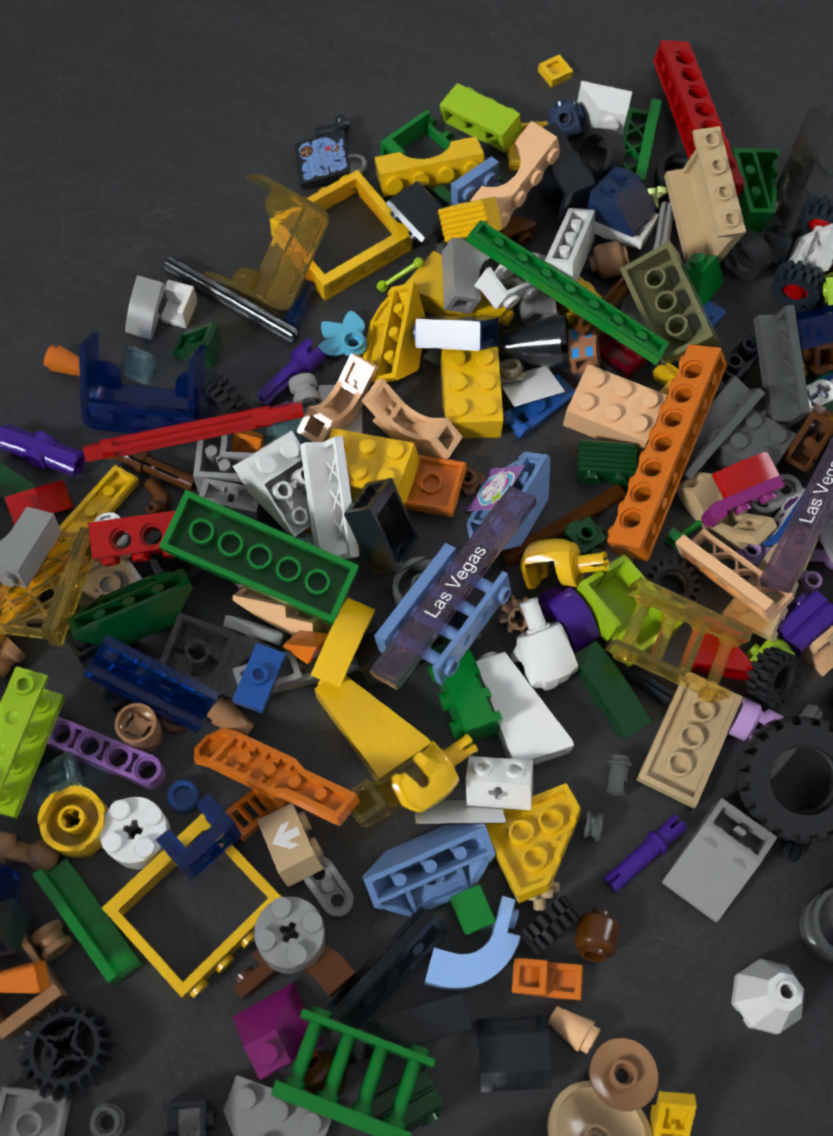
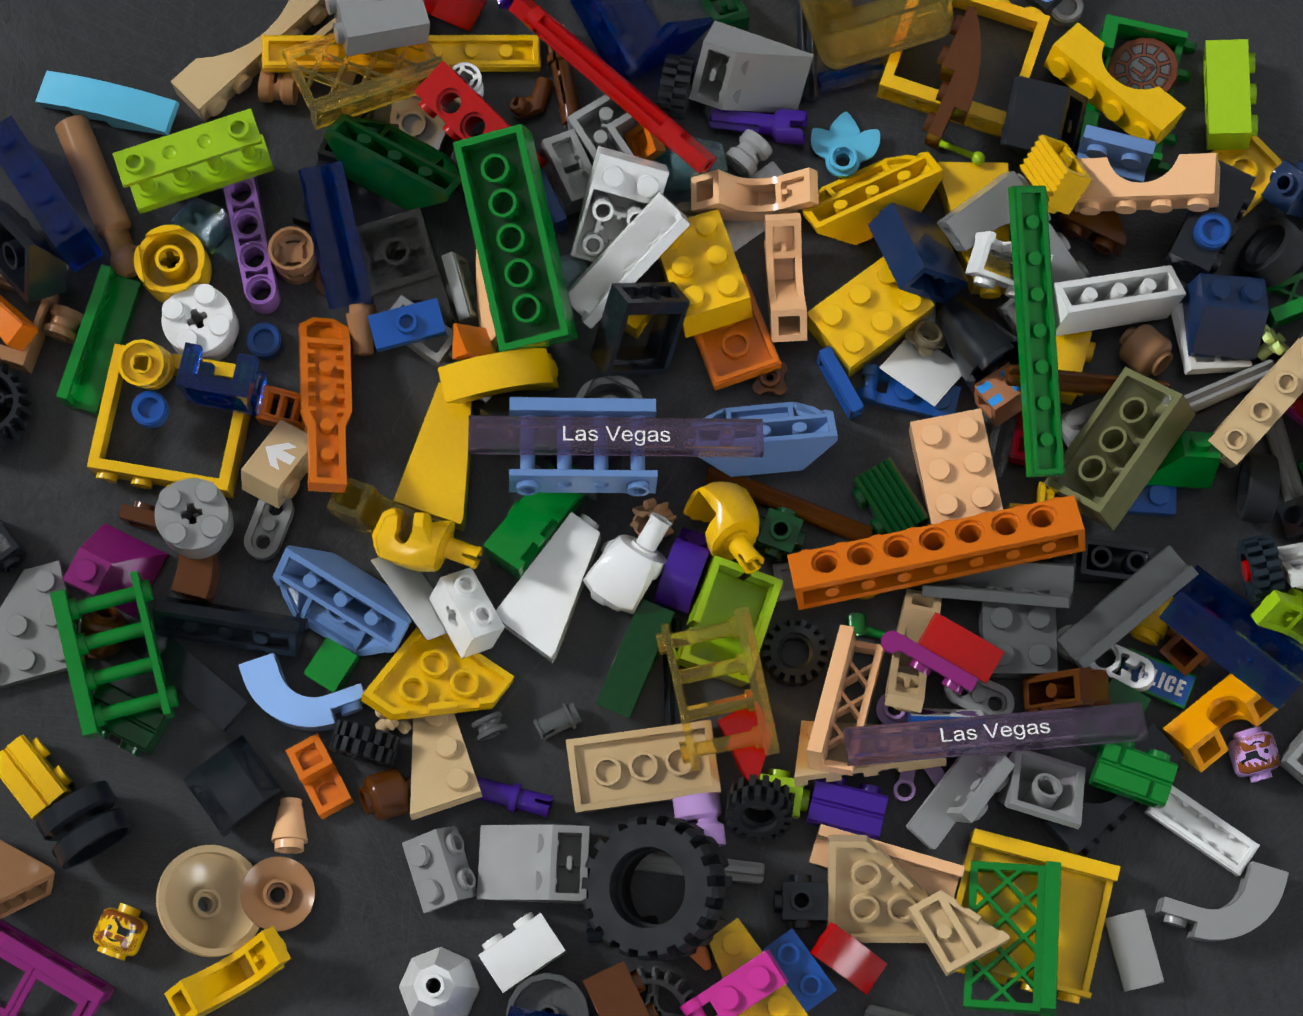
camera: 60 degrees right, 10 degrees up
(141, 890) = (146, 364): none -> yellow wheel
(175, 914) = (150, 409): none -> blue tile
(253, 350) = (748, 72): none -> light grey slope
(359, 233) = (959, 76): none -> reddish brown slope
(427, 142) = (1144, 65): none -> tile
(493, 488) = (774, 408): sticker -> none
(504, 439) = (839, 383): none -> blue tile
(572, 163) = (1212, 231): none -> blue tile
(604, 879) = (440, 767): none -> tan wing
(678, 934) = (440, 868): none -> light grey bracket
(779, 914) = (521, 952): none -> white brick

